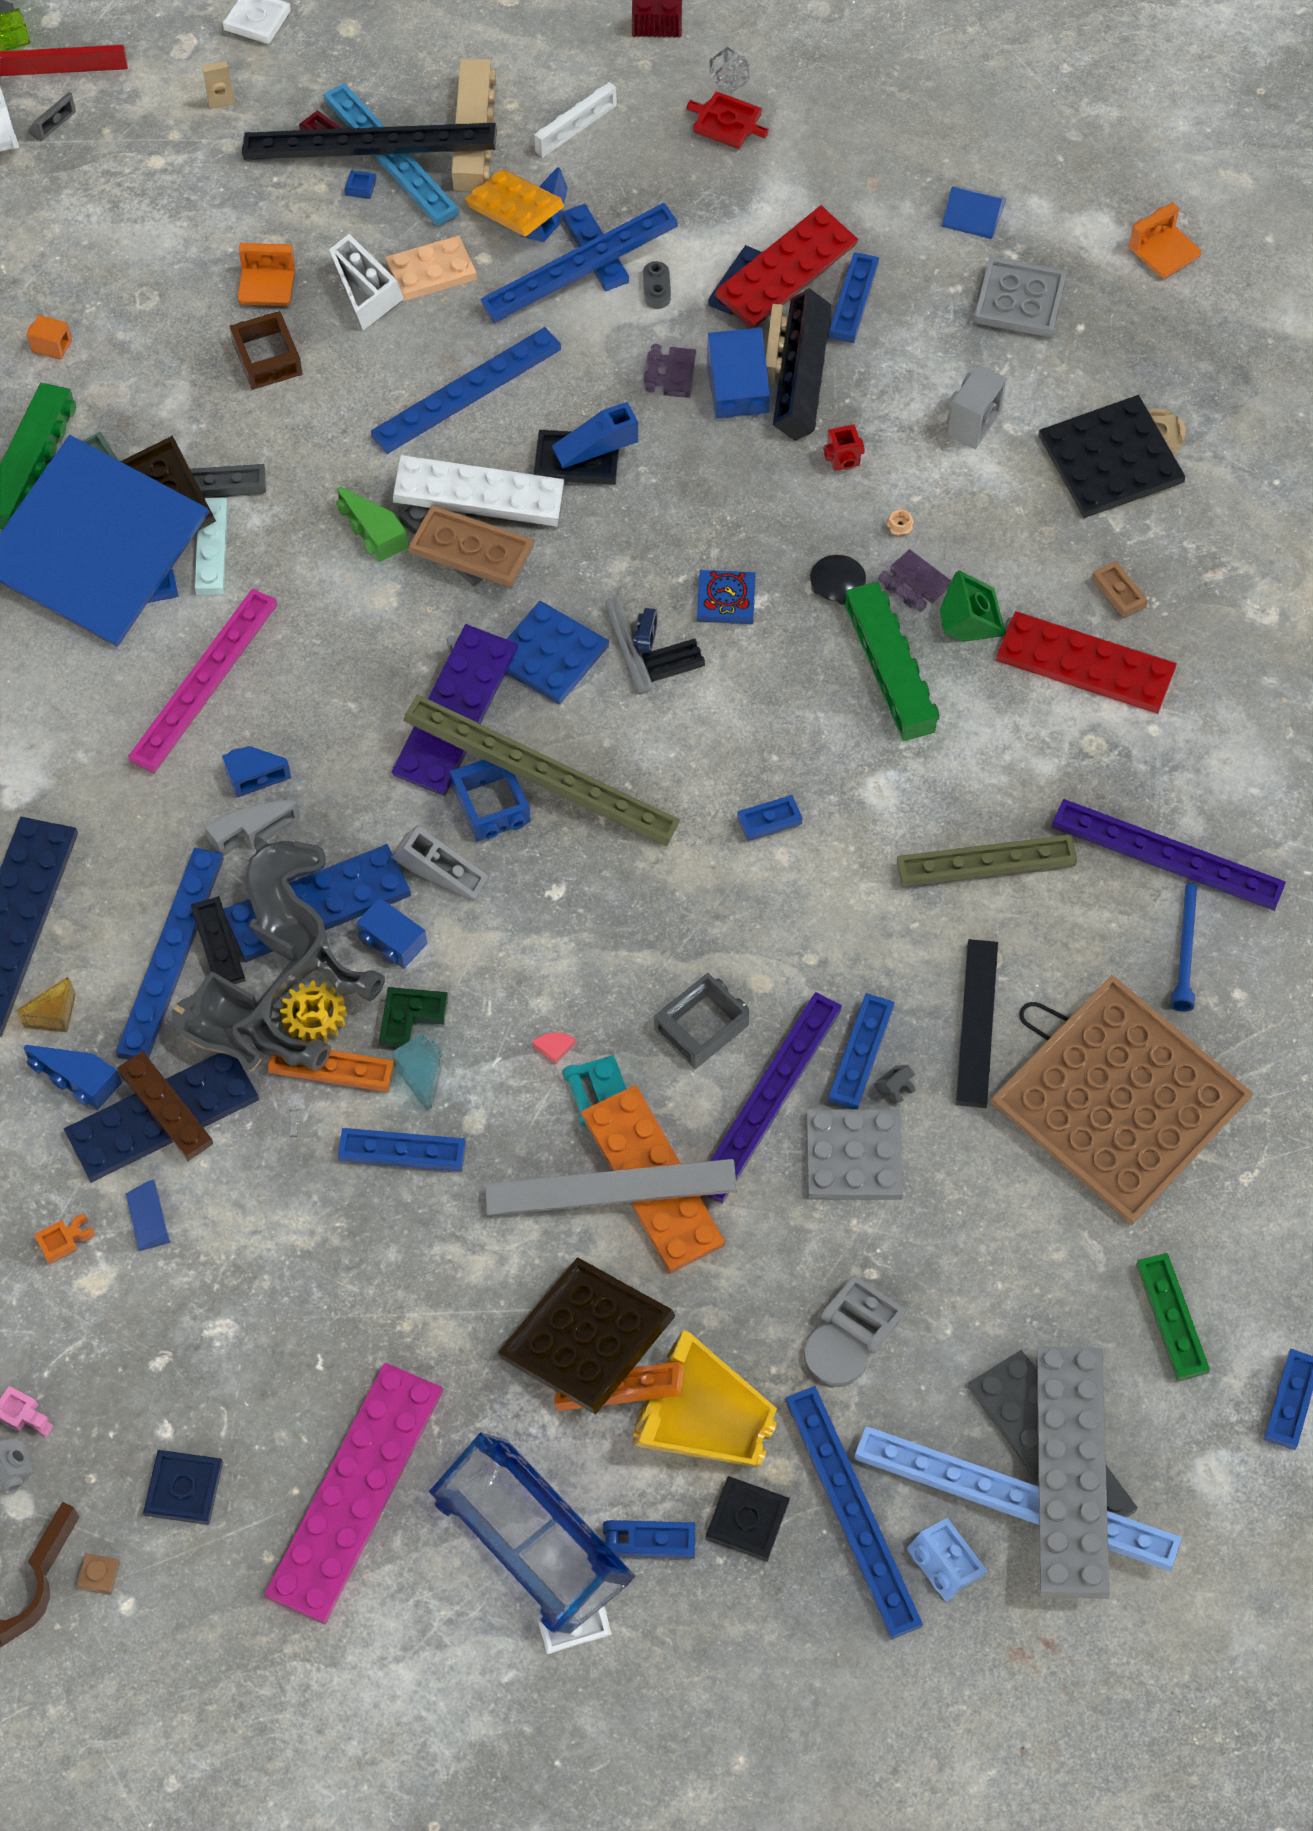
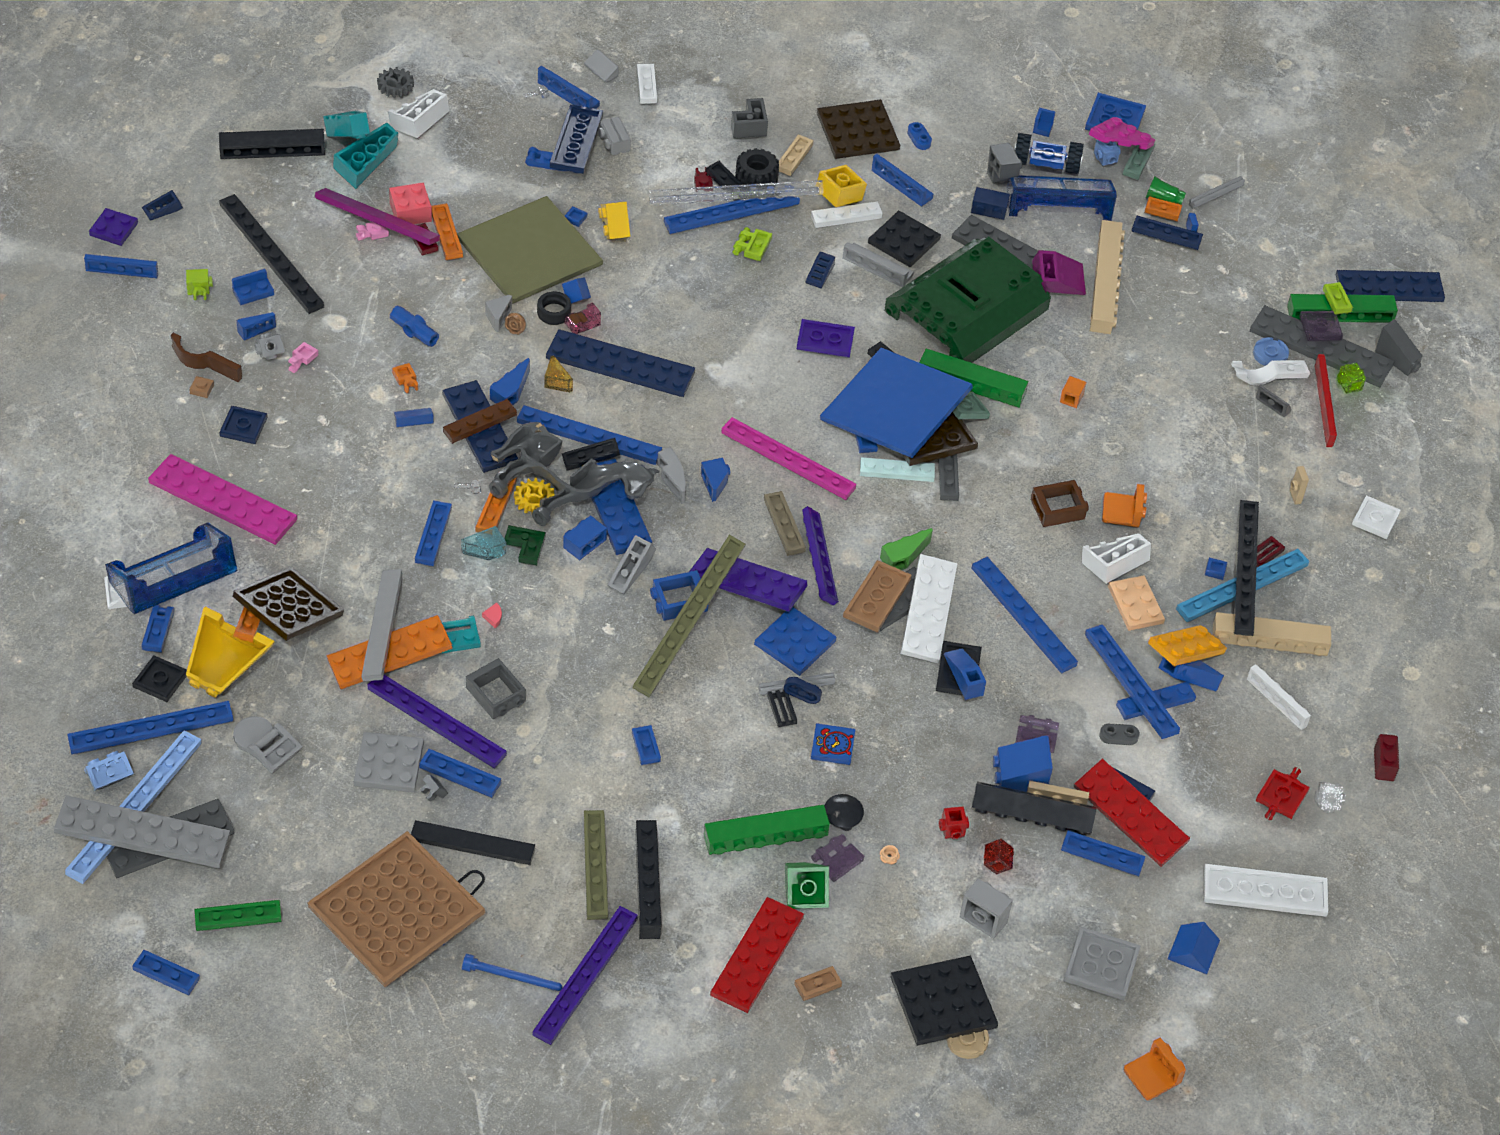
camera: 90 degrees right, 10 degrees down
(333, 676) = (784, 523): none -> dark tan plate
(380, 631) = (820, 556): none -> dark purple plate
(877, 139) = (1265, 890): none -> white plate
(892, 407) = (998, 856): none -> clear red brick
(1001, 791) = (648, 879): none -> black brick

